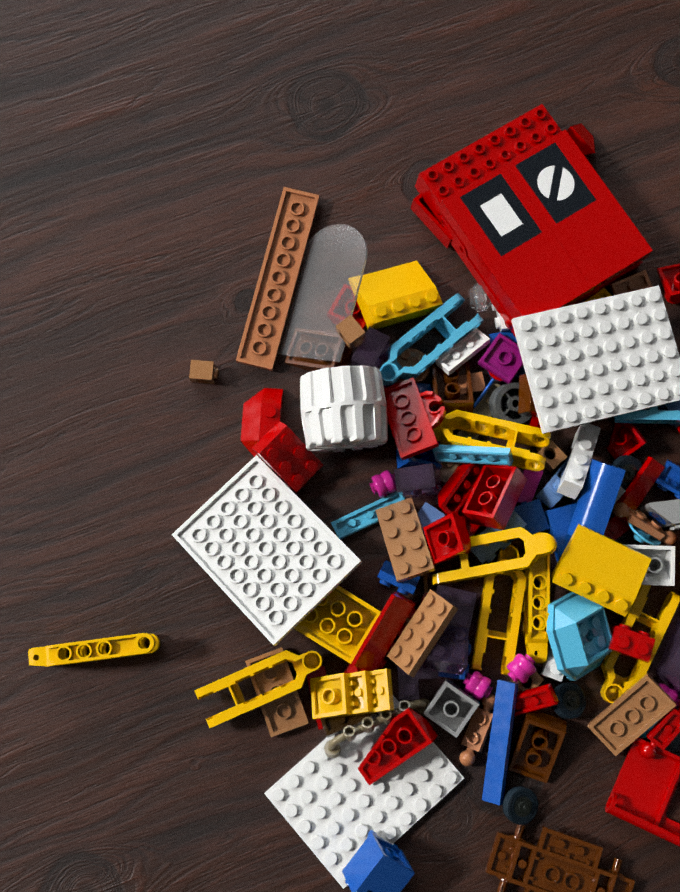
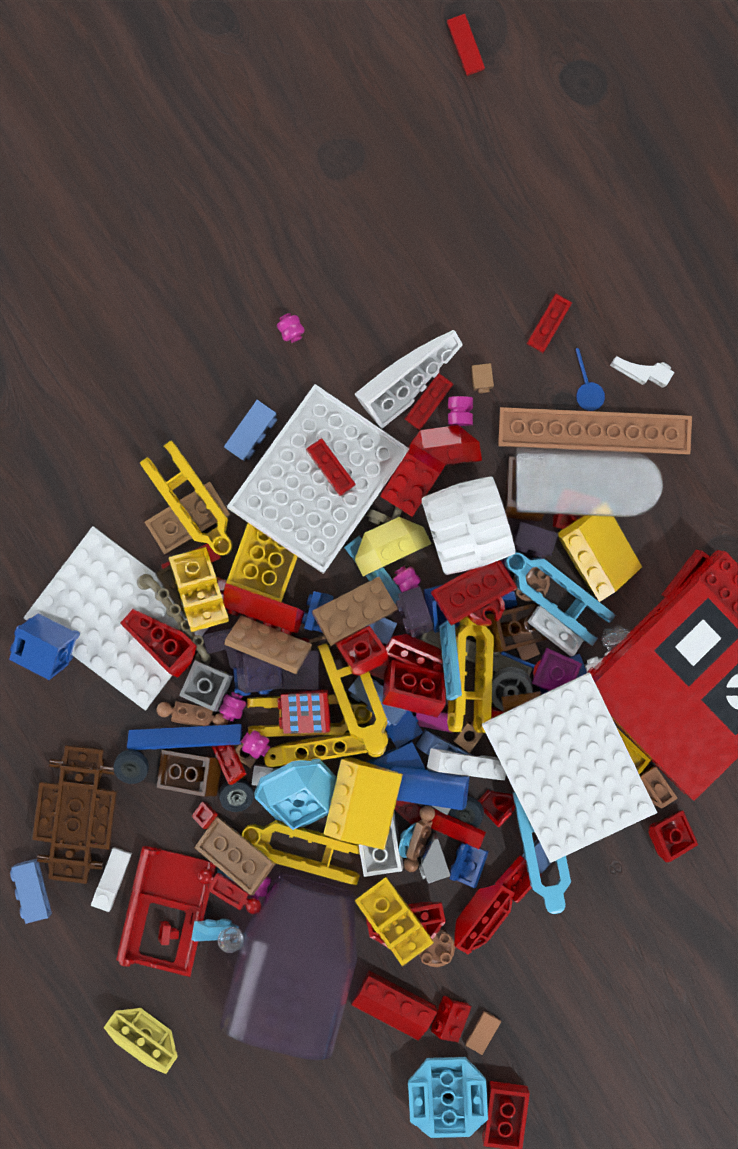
camera: 75 degrees right, 10 degrees up
(110, 547) = (290, 328): none -> dark pink piece
(119, 647) = (198, 360): yellow piece -> none
(166, 300) = (549, 323): none -> red tile
(190, 452) = (398, 384): none -> white wedge
(203, 608) = (251, 431): none -> medium blue brick
(214, 428) = (428, 401): none -> red tile
(230, 398) = (460, 411): none -> dark pink wheel
(237, 209) = (659, 373): none -> white slope
(243, 276) = (590, 395): none -> blue piece
(257, 534) = (330, 467): none -> red tile
(316, 500) = (377, 517): none -> dark tan plate
(346, 494) = (389, 543): none -> light yellow wedge
(351, 332) = (547, 516): medium nougat brick -> none
(497, 609) = (304, 712): none -> slope
(584, 738) = (204, 815): none -> red plate
(631, 643) = (299, 844): red bracket -> none
(635, 852) = (111, 879): none -> white slope

